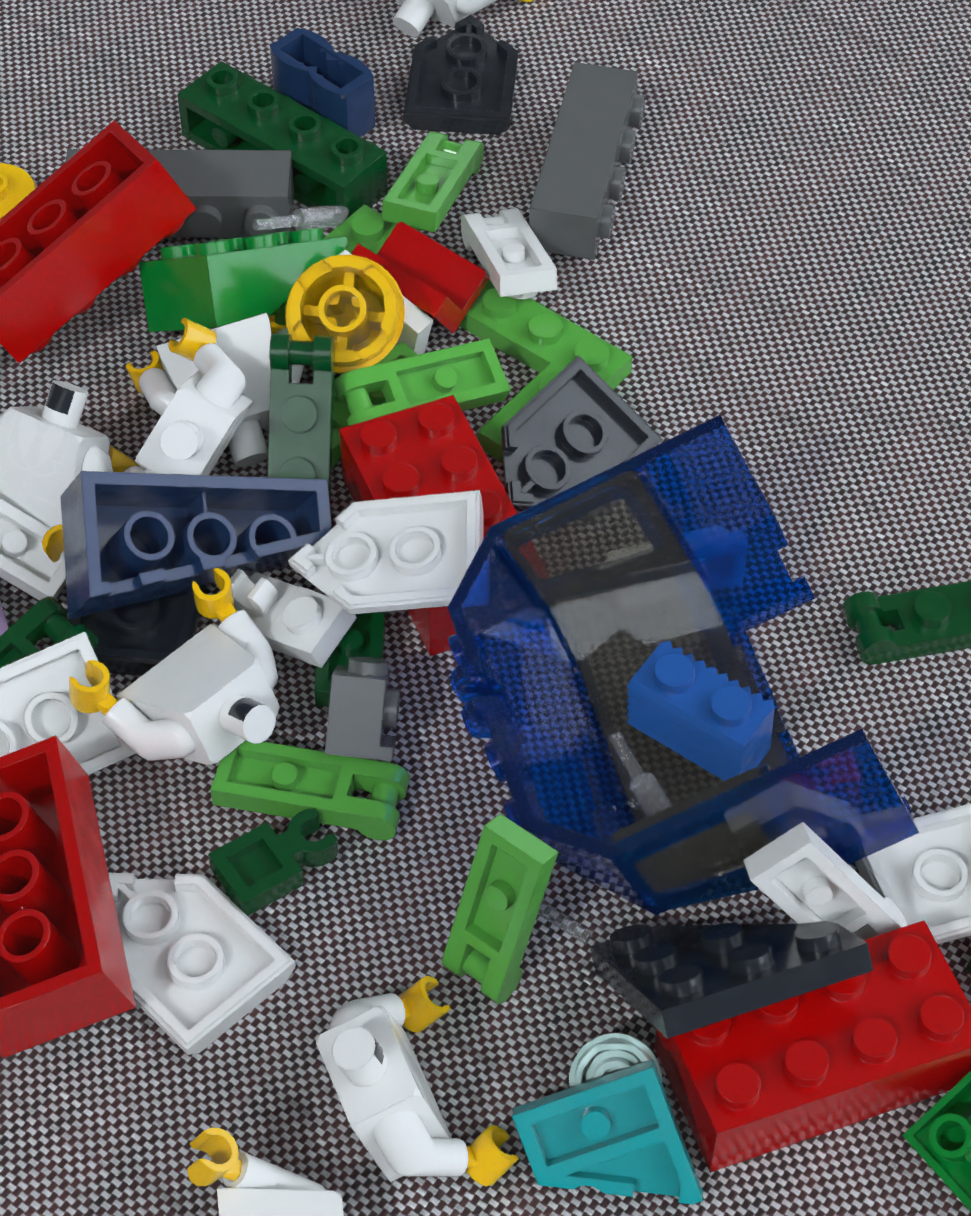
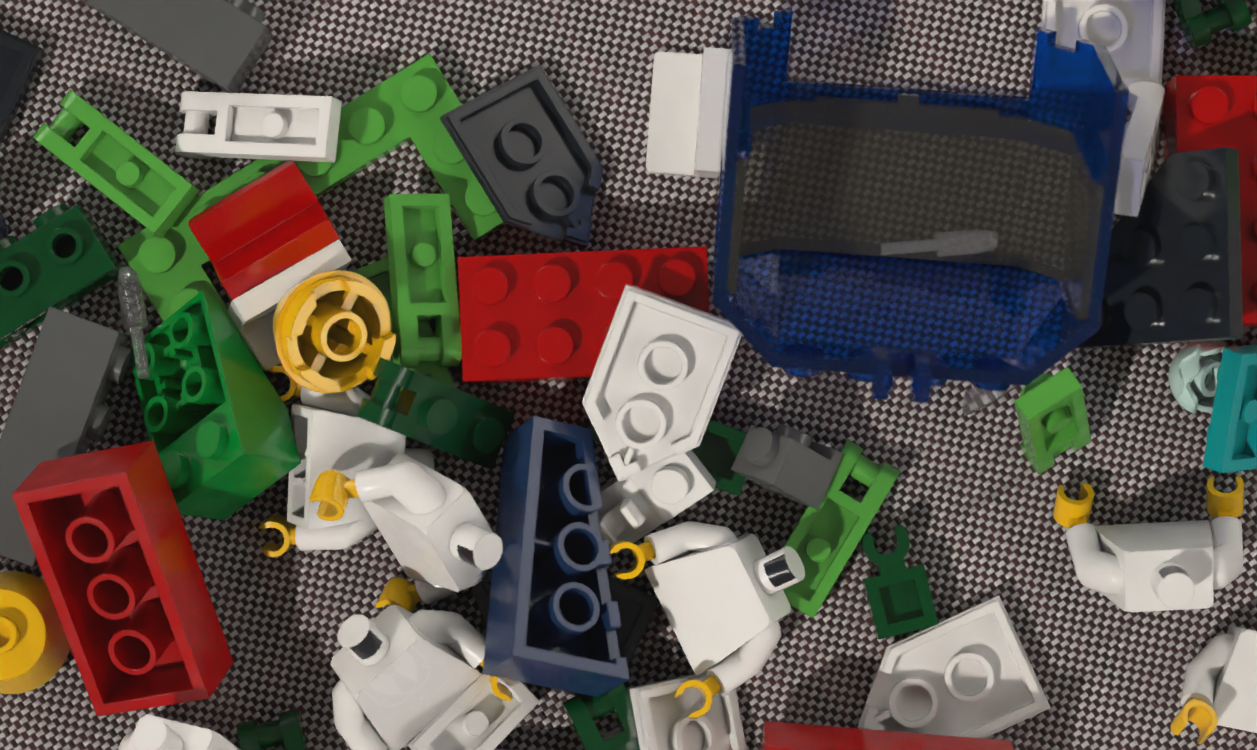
camera: 70 degrees left, 35 degrees up
(700, 713) = (905, 171): blue brick -> none

